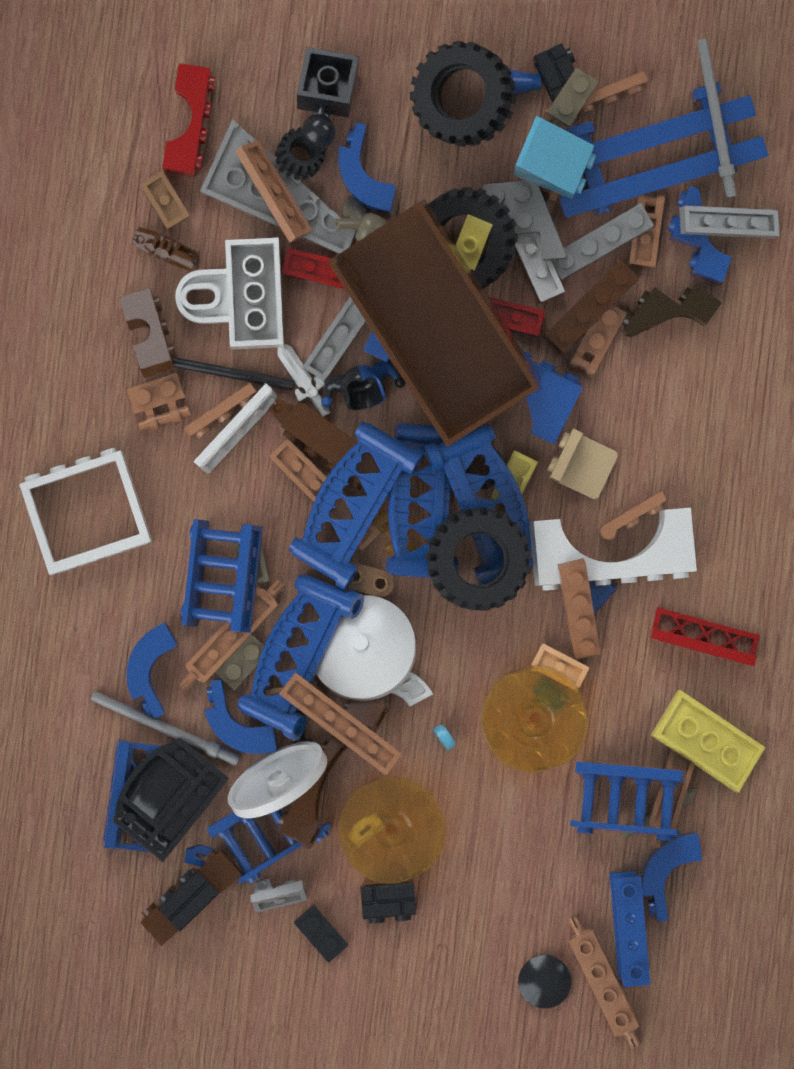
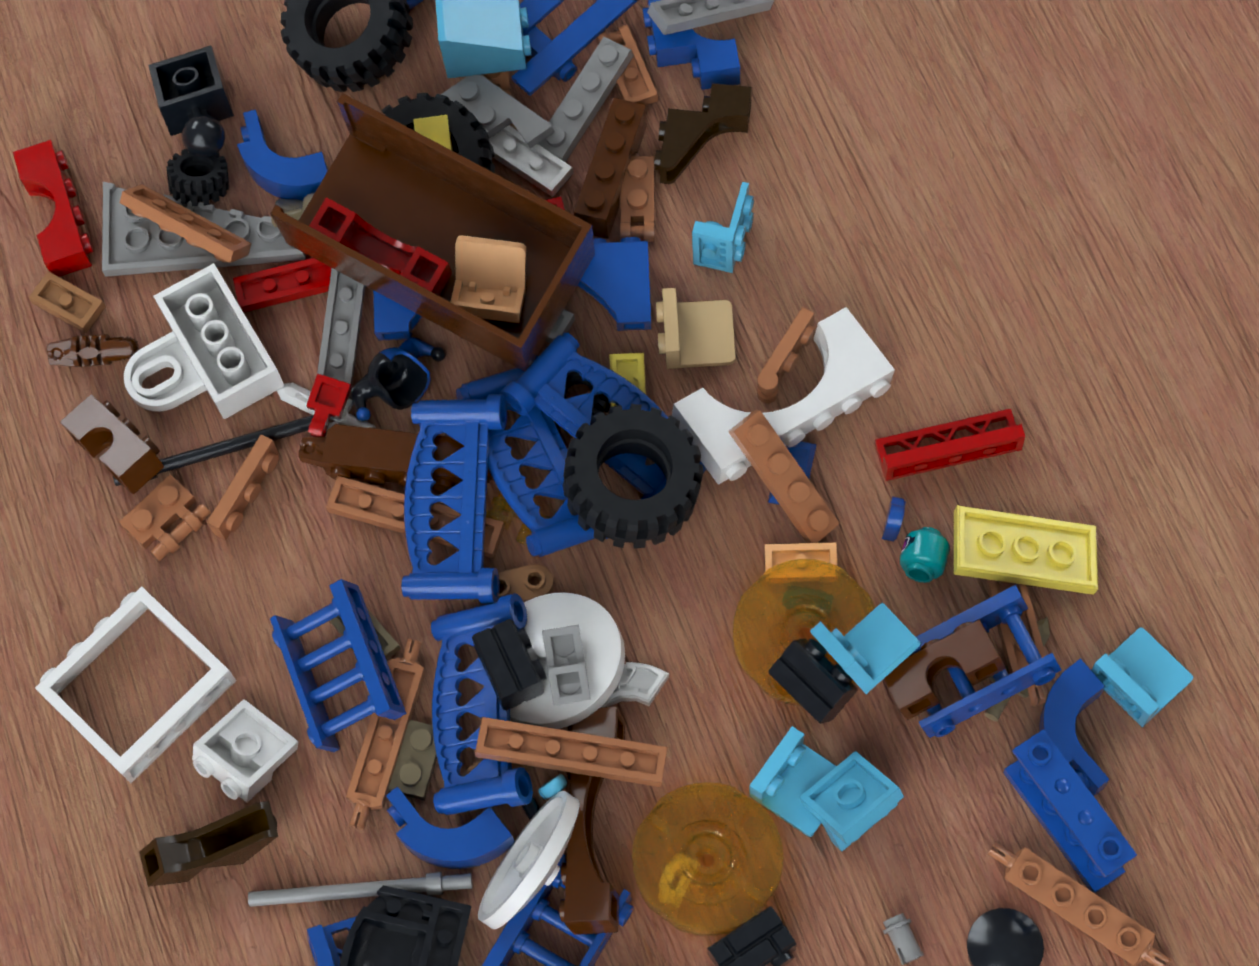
camera: 20 degrees left, 20 degrees down
(83, 653) = (218, 844): none -> dark brown arch
(134, 598) = (243, 751): none -> white plate
(140, 665) = (291, 805): blue arch -> none
(236, 429) = (271, 499): white tile -> none
(307, 381) = (327, 400): none -> red plate
(317, 734) = (552, 787): none -> medium azure piece
(330, 644) = (508, 663): none -> black brick
(367, 664) = (566, 665): none -> light grey slope
(394, 305) = (357, 234): none -> red arch
(444, 737) = (710, 715): medium azure tile -> none
(455, 370) = (490, 278): none -> light nougat bracket
(476, 814) = (787, 776): none -> medium azure bracket
(484, 943) = (902, 938): none -> light grey pin
(501, 844) = (851, 799): none -> medium azure bracket
(519, 758) = (813, 679): none -> black brick
(565, 759) = (870, 648): none -> medium azure bracket
(581, 793) = (965, 649): none -> reddish brown arch
(627, 408) = (723, 246): none -> medium azure bracket
(638, 670) = (894, 519): none -> blue tile
(642, 707) = (924, 554): none -> teal head
(732, 862) = (1141, 676): none -> medium azure bracket

